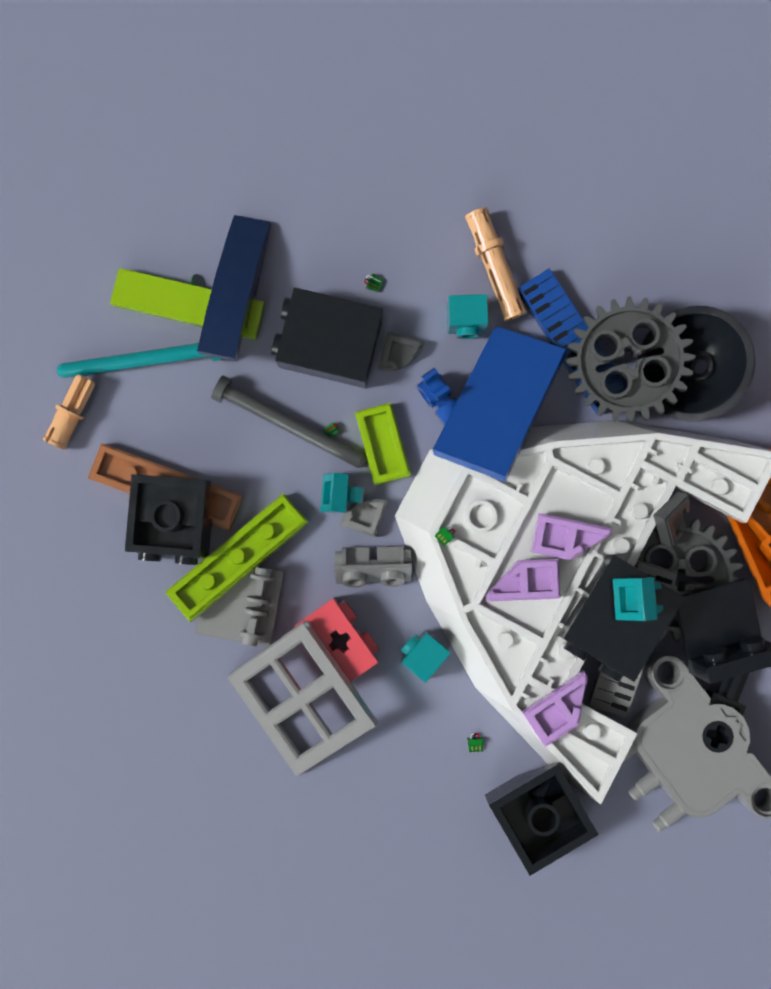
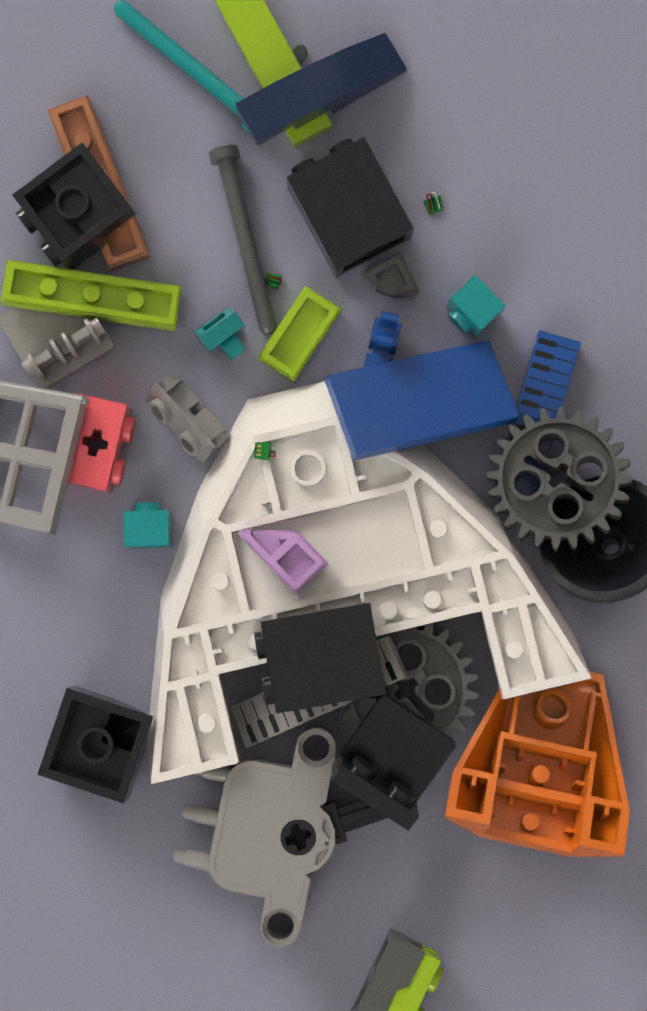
camera: 45 degrees right, 0 degrees up
(69, 412) = (89, 45): light nougat axle -> none
(365, 516) = (223, 374): light grey tile -> none
(475, 743) = (111, 640): green piece -> none
(491, 251) = (550, 279): light nougat pin -> none
(558, 710) = (197, 676): lavender tile -> none
(565, 537) = (352, 553): lavender tile -> none
(636, 599) = (345, 649): teal tile -> none
(669, 518) = (450, 631): dark grey tile -> none

